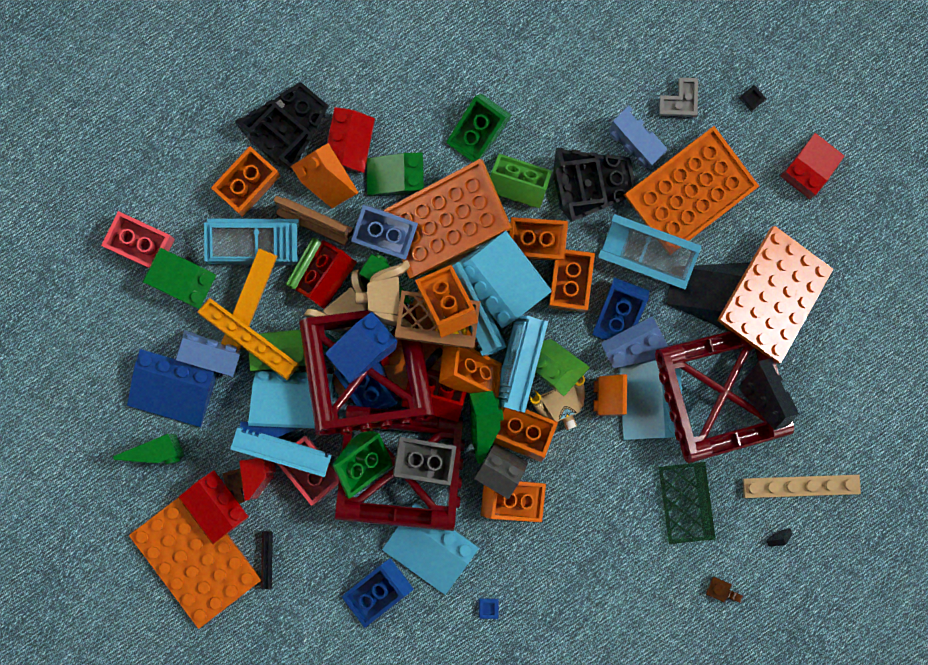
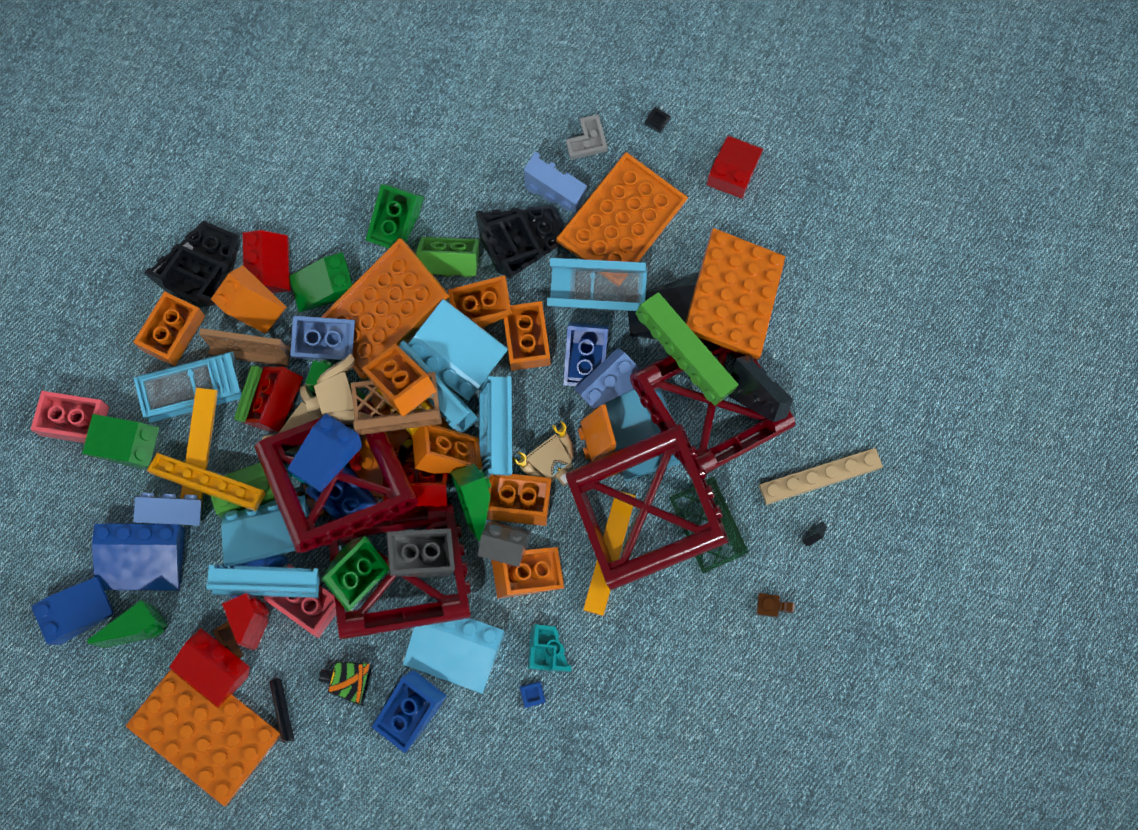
camera: 10 degrees left, 10 degrees down
(104, 421) = (72, 611): none -> blue slope
(330, 551) = (348, 680): none -> torso
(511, 573) = (546, 651): none -> teal slope
(559, 367) = (535, 423): bright green slope -> none
(591, 502) = (614, 538): none -> light orange tile
(600, 525) = (705, 536): none -> dark red piece
(715, 339) = (686, 349): none -> bright green brick

